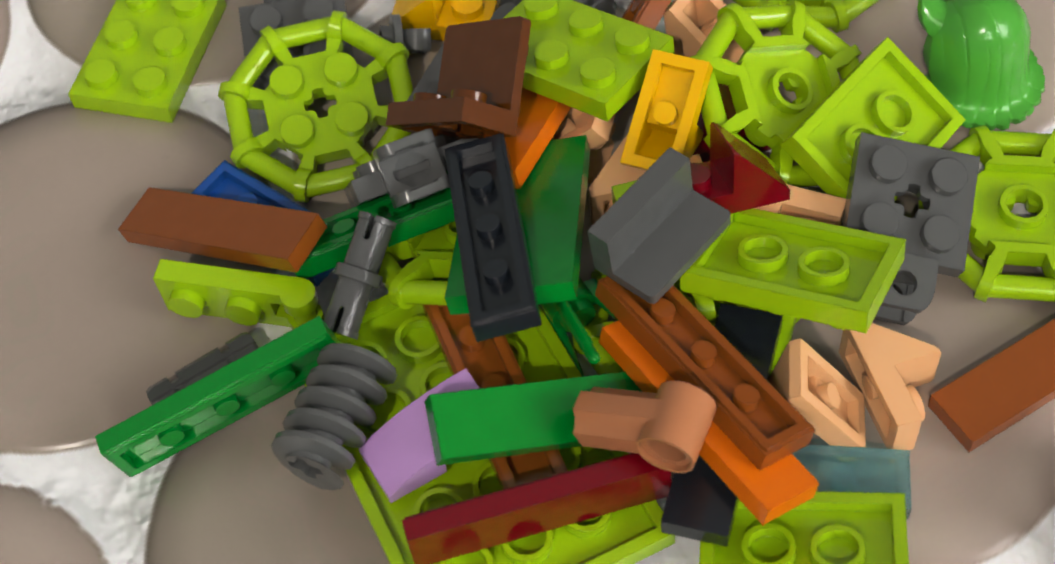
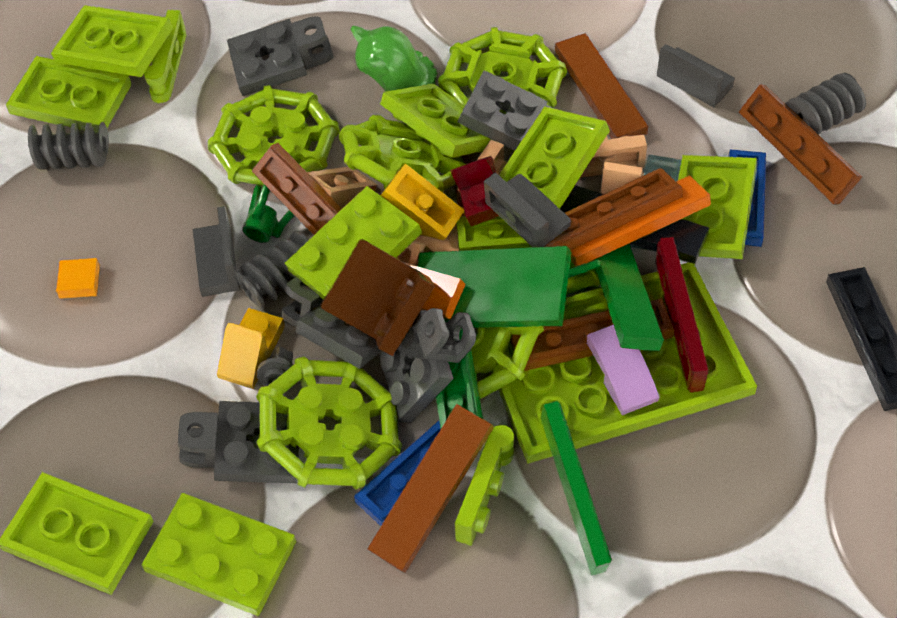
camera: 85 degrees left, 0 degrees up
(202, 367) = (538, 515): dark grey axle -> none
(327, 411) = (606, 414): dark grey piece -> none
(358, 274) = (503, 390): dark grey pin -> none
(491, 239) = (518, 287): black tile -> none
(658, 426) = (657, 228): nougat piece -> none

